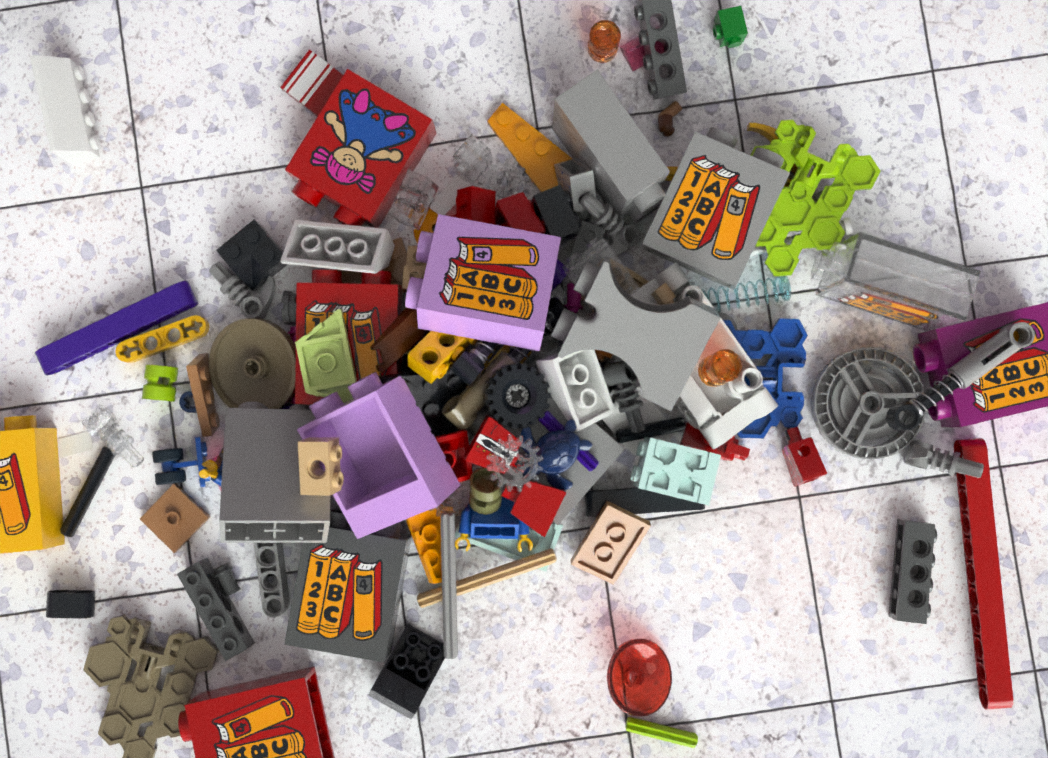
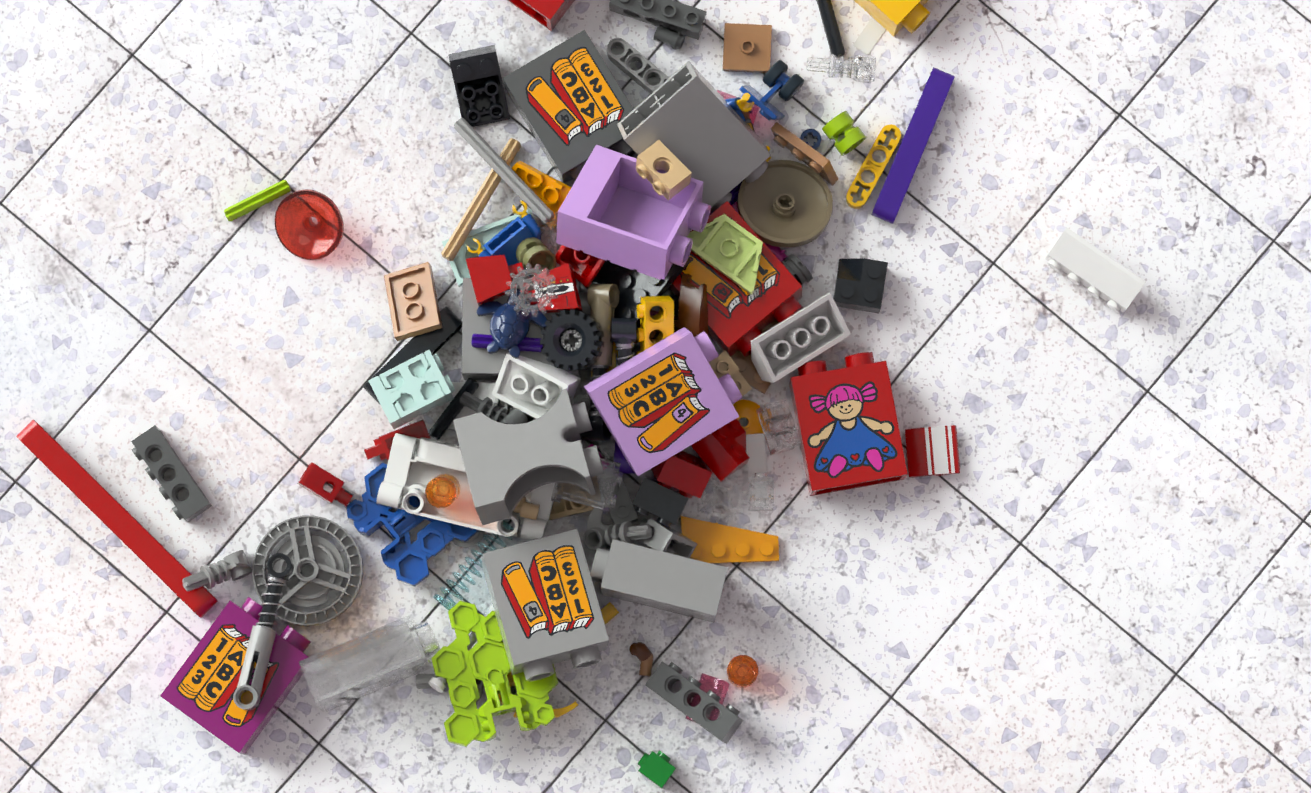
camera: 135 degrees right, 5 degrees down
(243, 297) = (839, 247): light grey piece -> none

